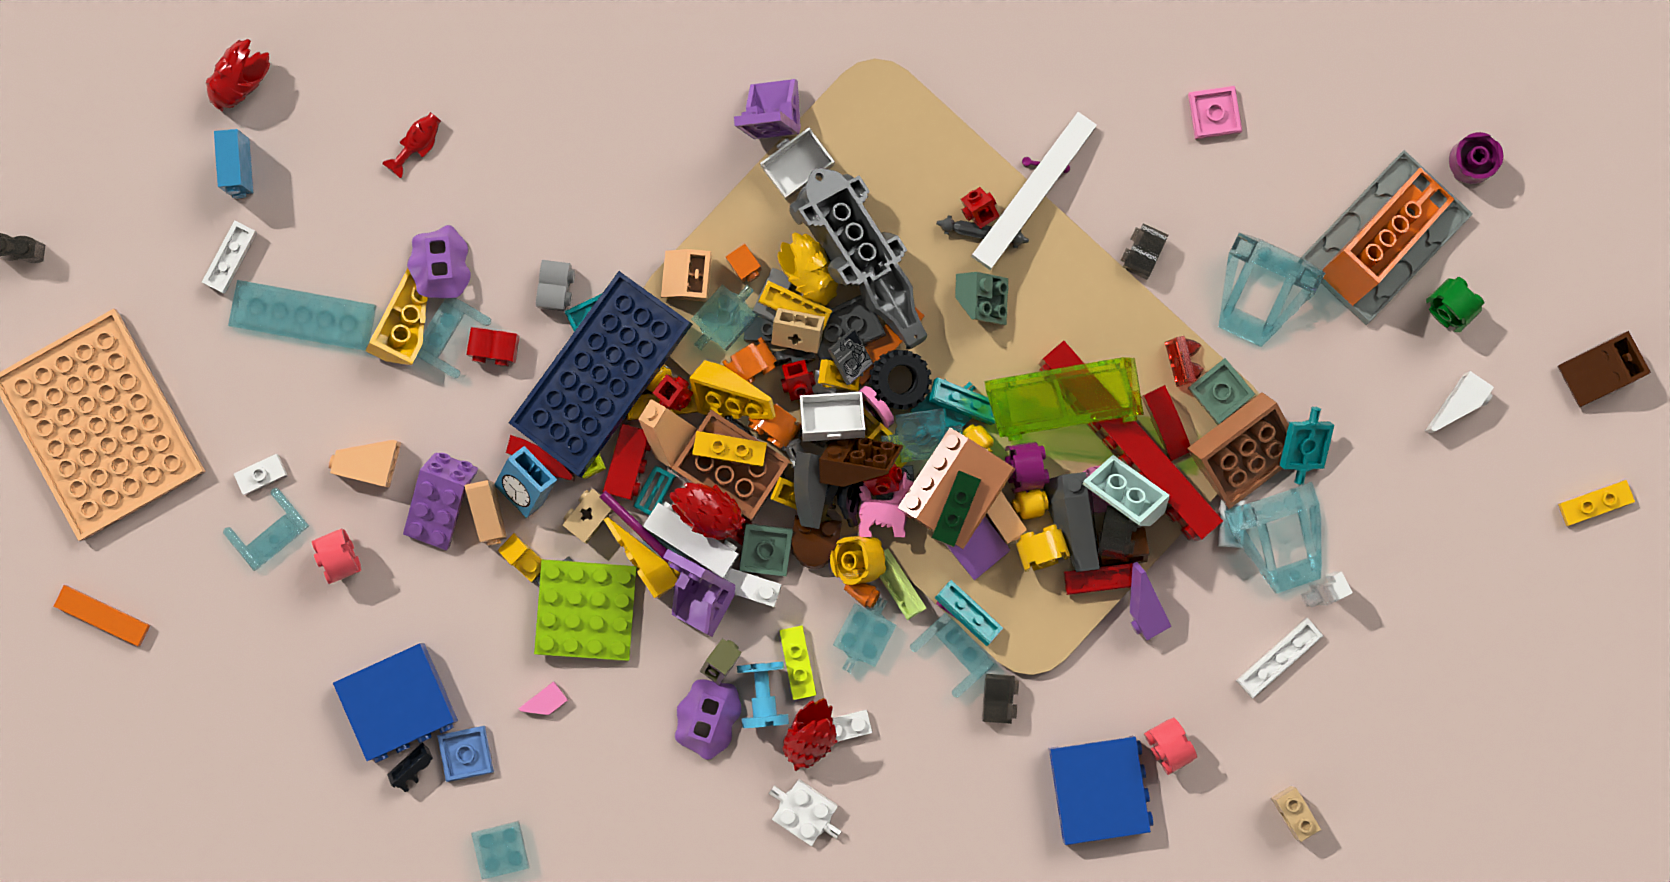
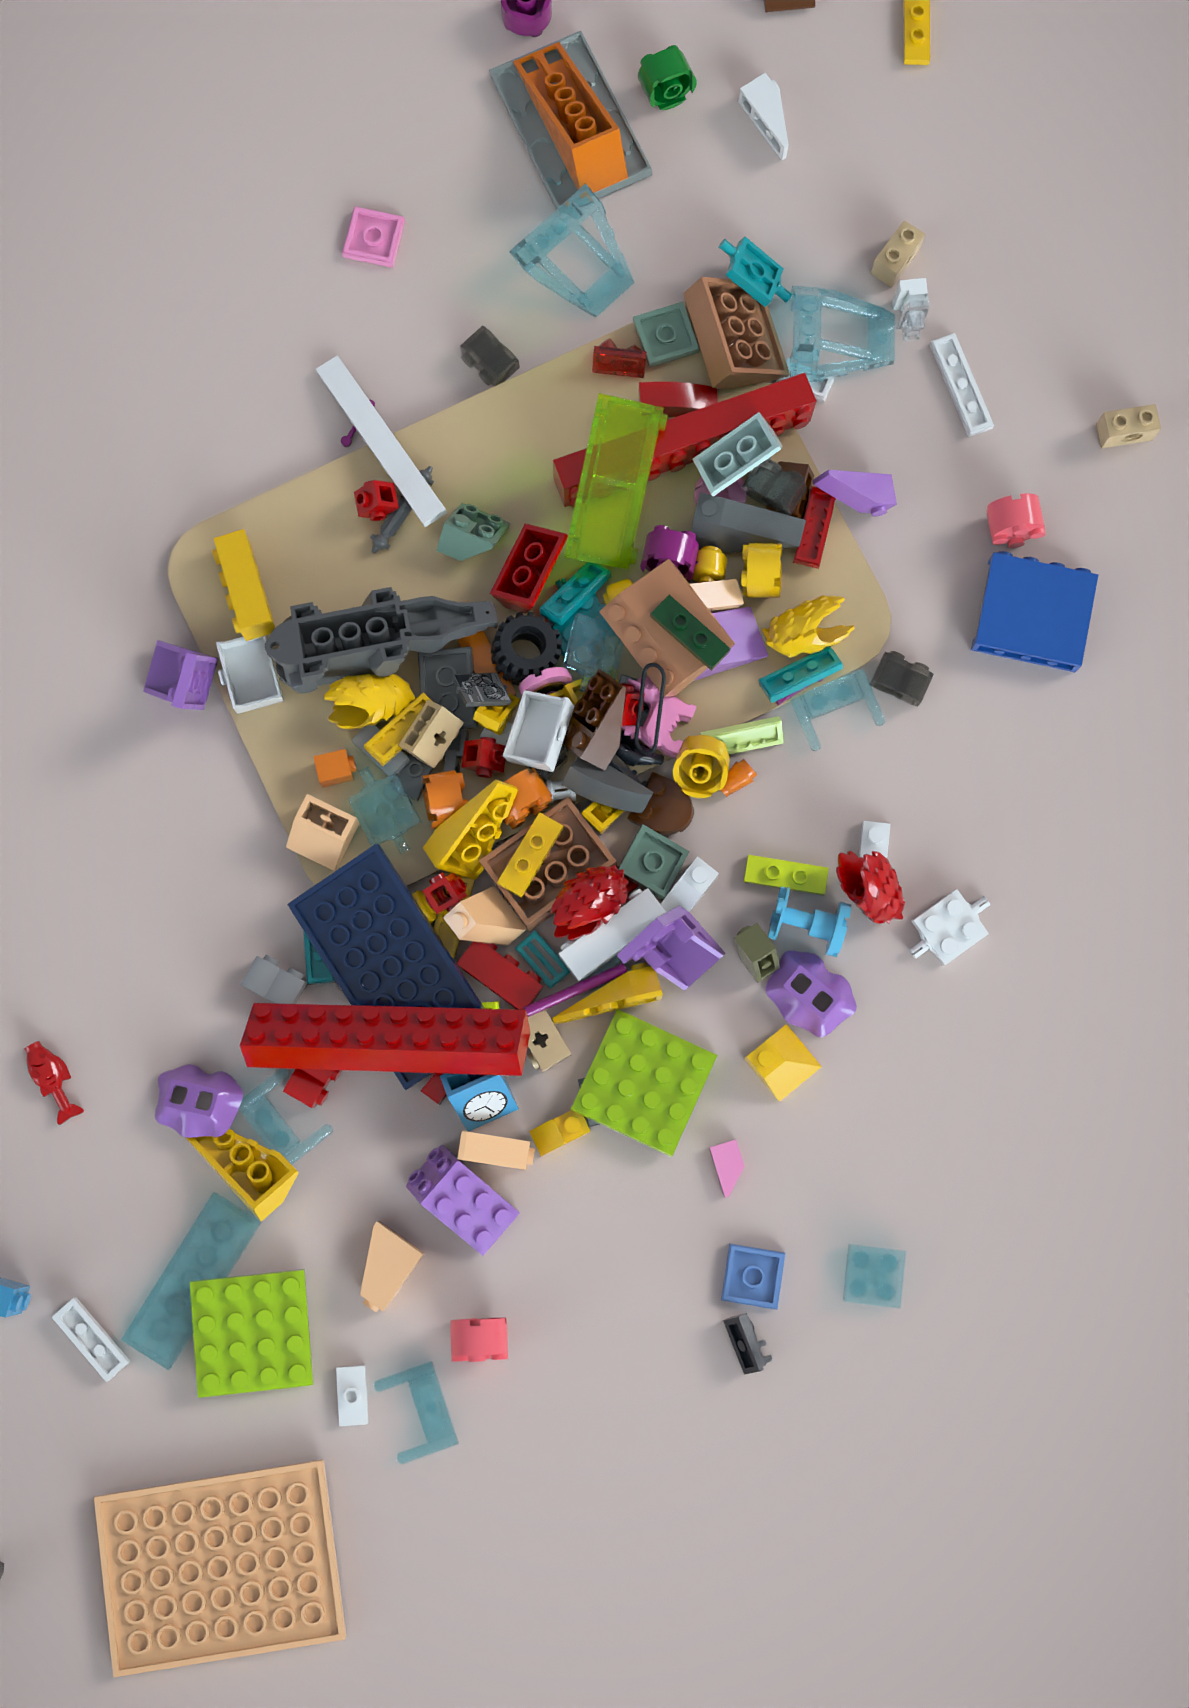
camera: 75 degrees left, 5 degrees down
(101, 615) = (441, 1644): orange tile -> none
(278, 378) = (251, 1333): none -> lime plate
(395, 703) = (669, 1334): blue brick -> none
(538, 393) = (386, 1039): none -> red brick
(643, 715) = (782, 1062): none -> yellow slope
(864, 635) = (783, 792): clear light blue plate -> none
(865, 130) = (244, 585): none -> yellow brick
(884, 491) = (659, 708): none -> black piece
(968, 354) = (528, 567): none -> red slope
(1006, 601) = (797, 629): none -> yellow head
(1374, 561) = (897, 253): none -> tan brick

